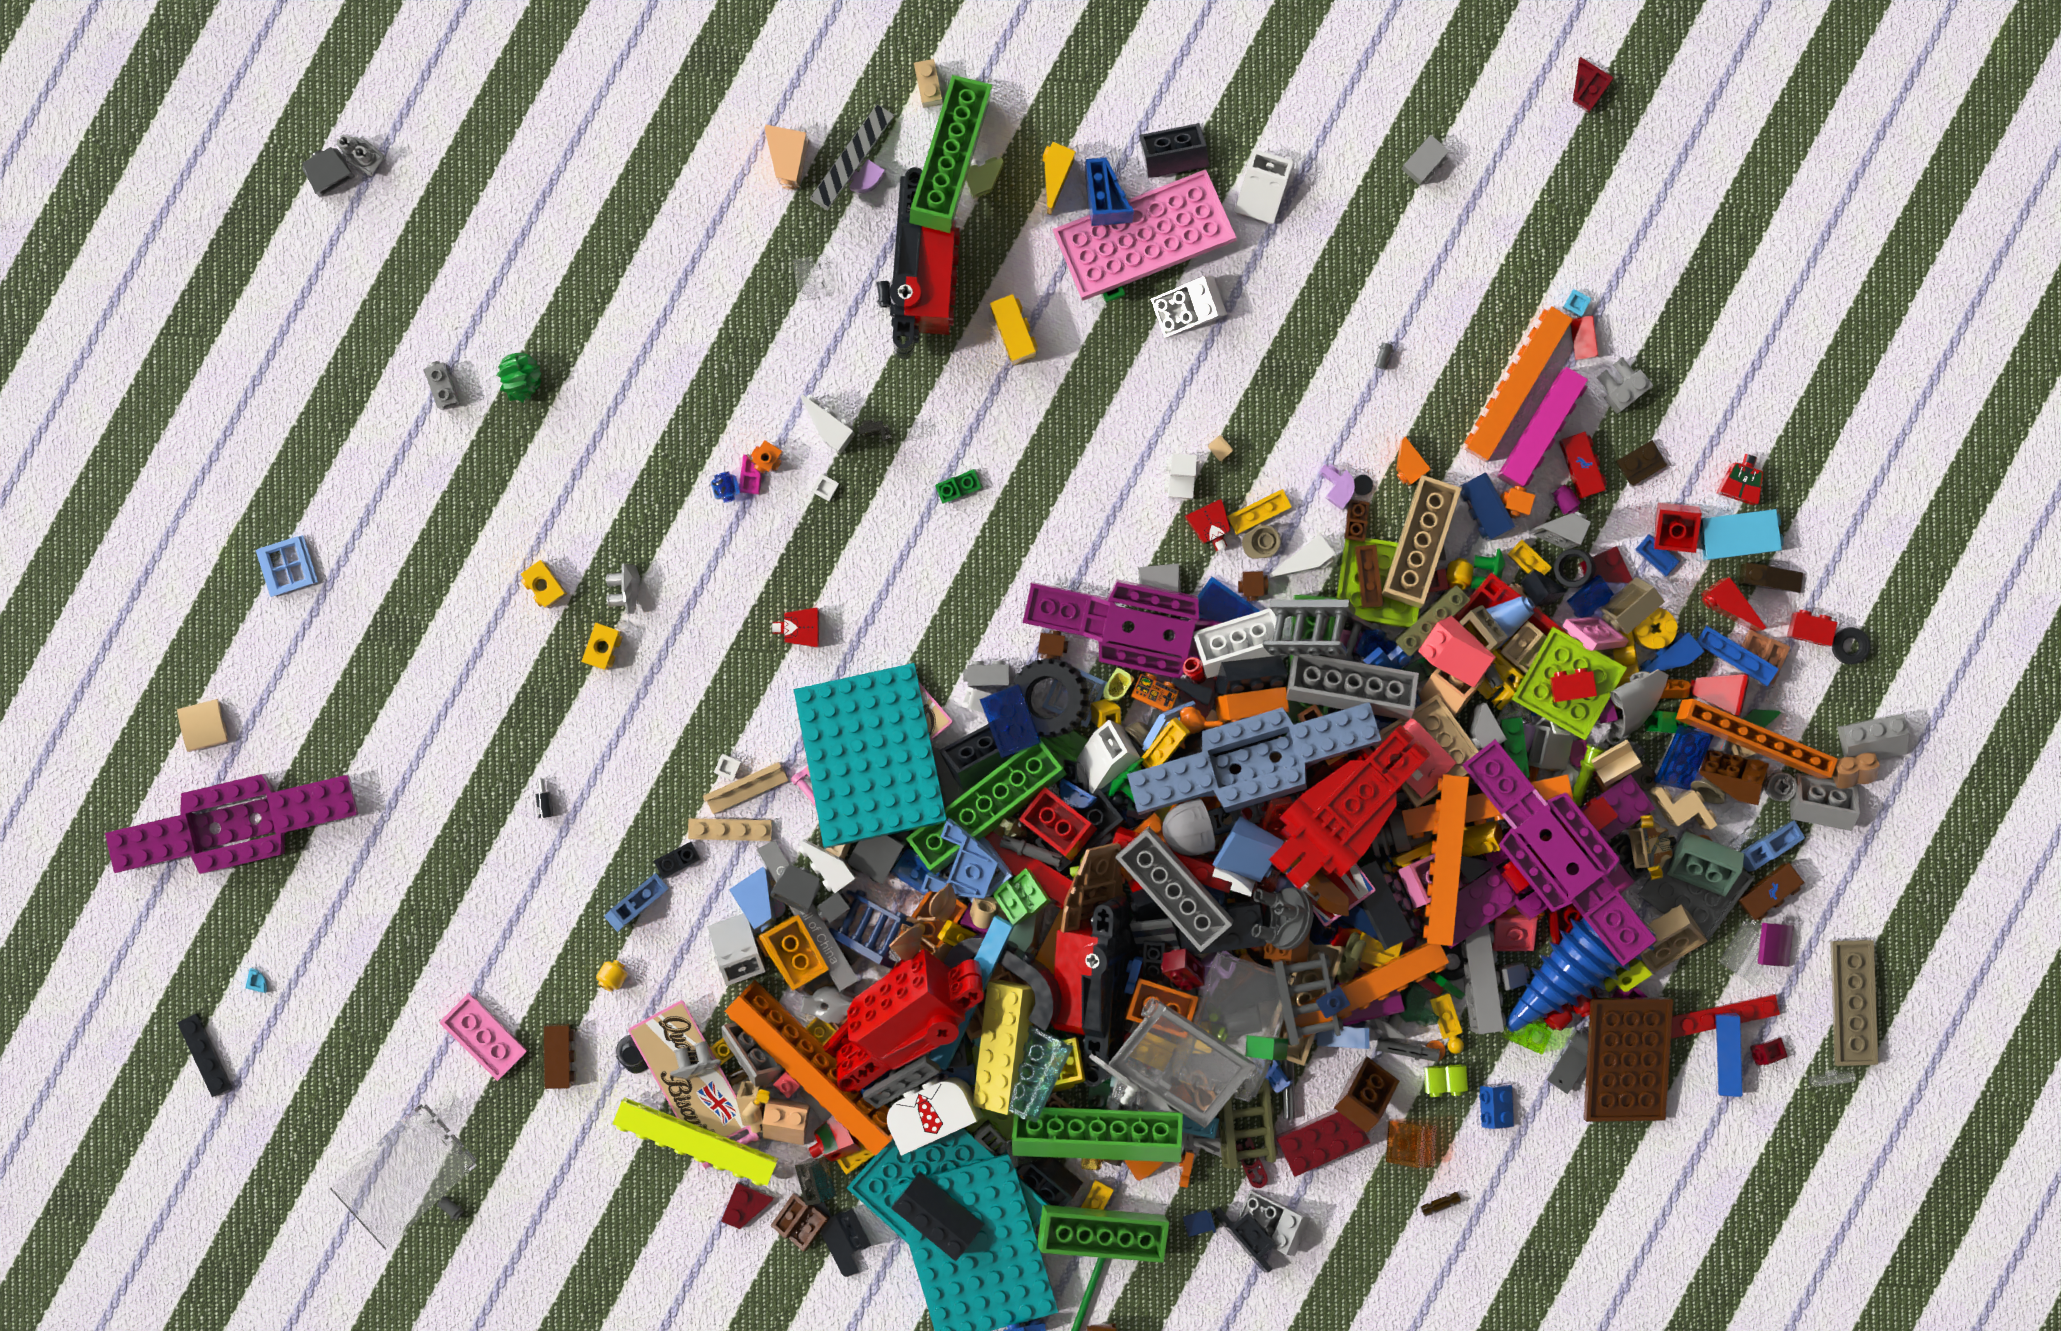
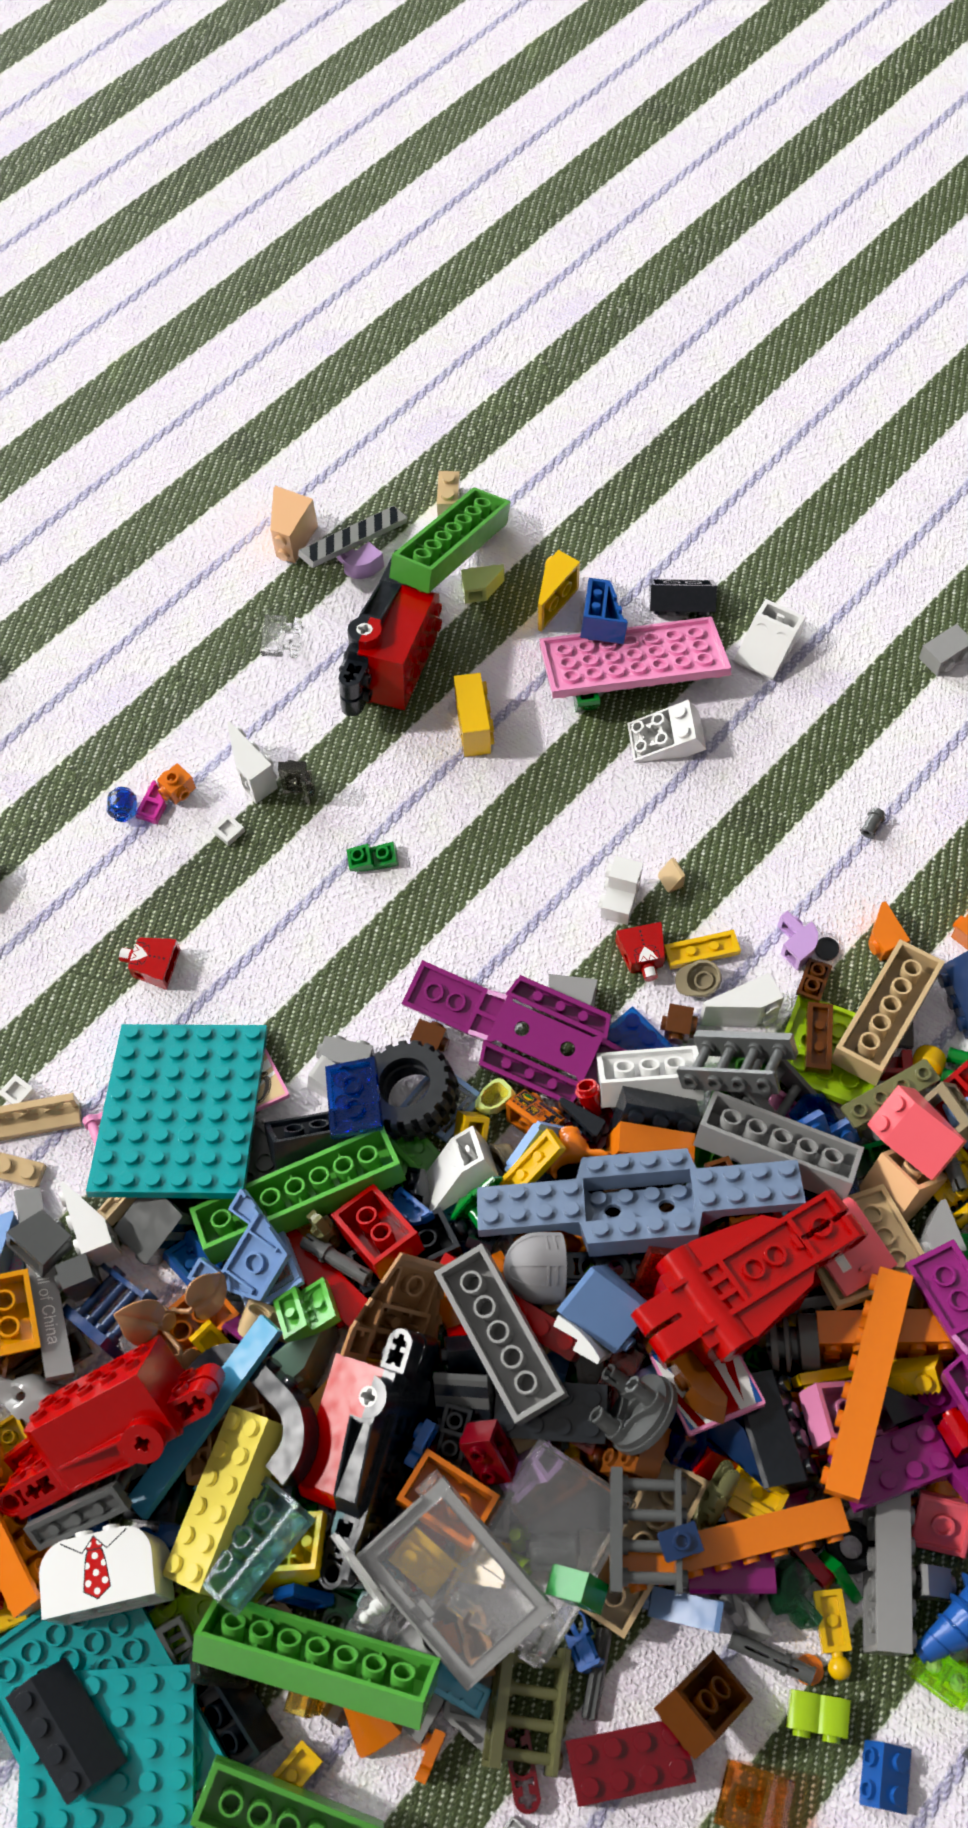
camera: 15 degrees right, 25 degrees down
(1072, 1091) = (303, 1597): none -> blue tile

